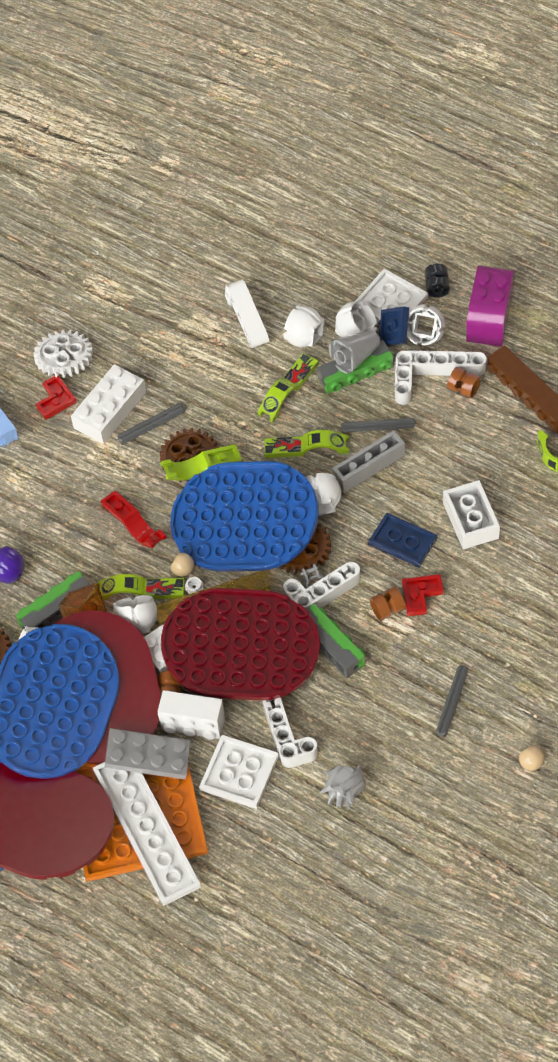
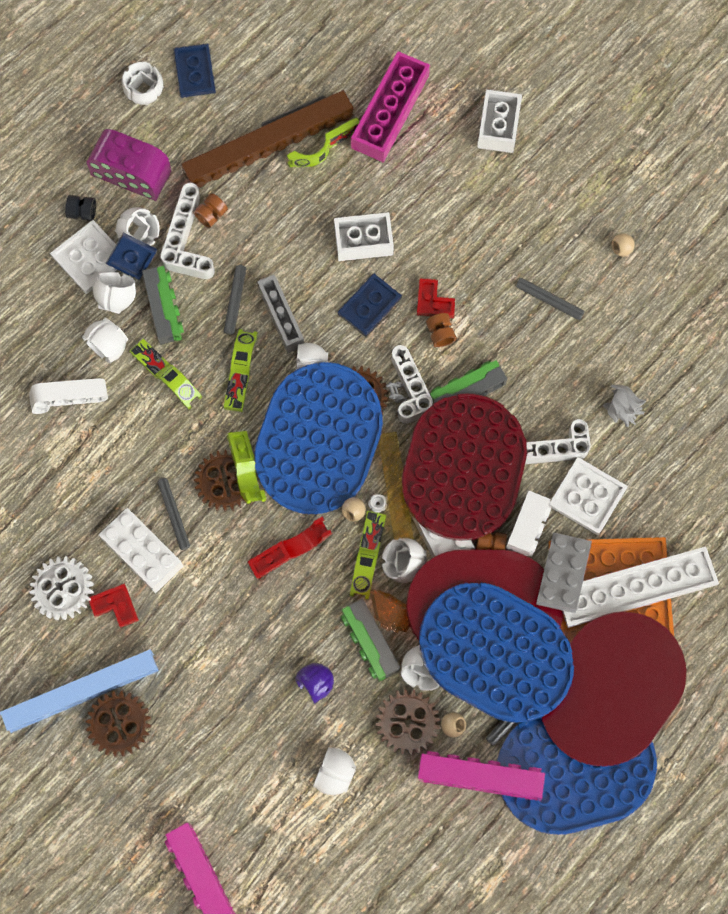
camera: 85 degrees left, 15 degrees up
(353, 350) = (156, 297): light grey cone -> none

